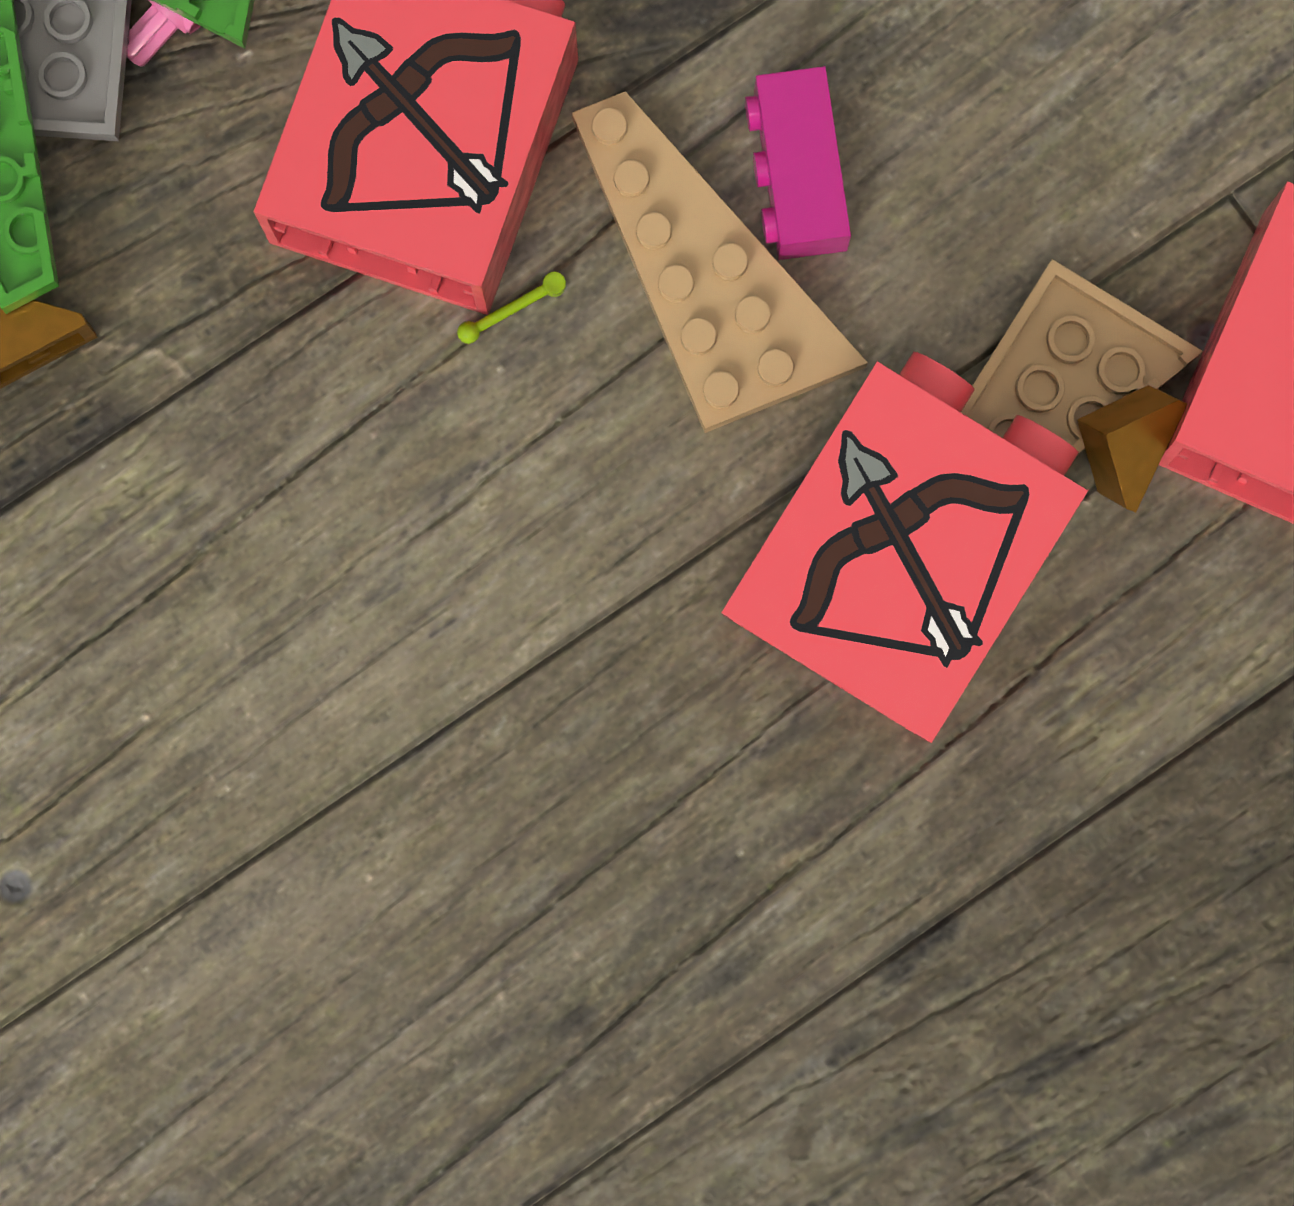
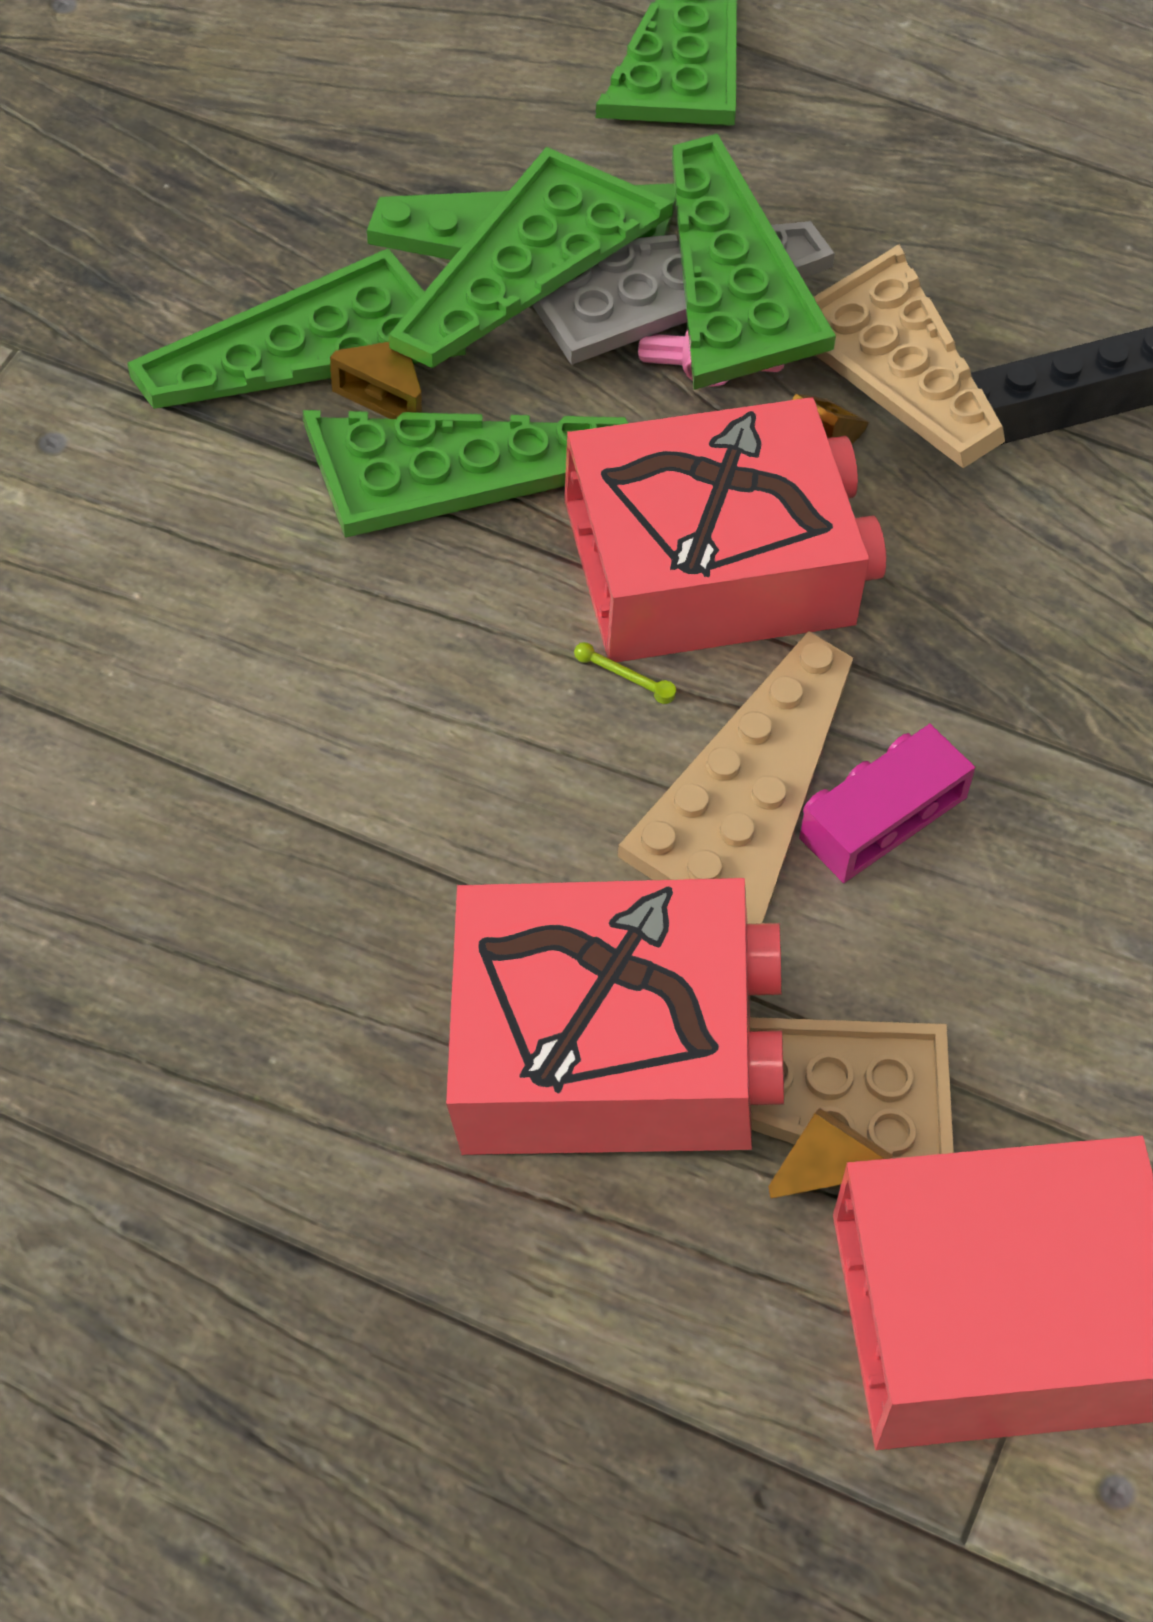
camera: 55 degrees right, 25 degrees down
(163, 343) = (435, 462): none -> bright green wing

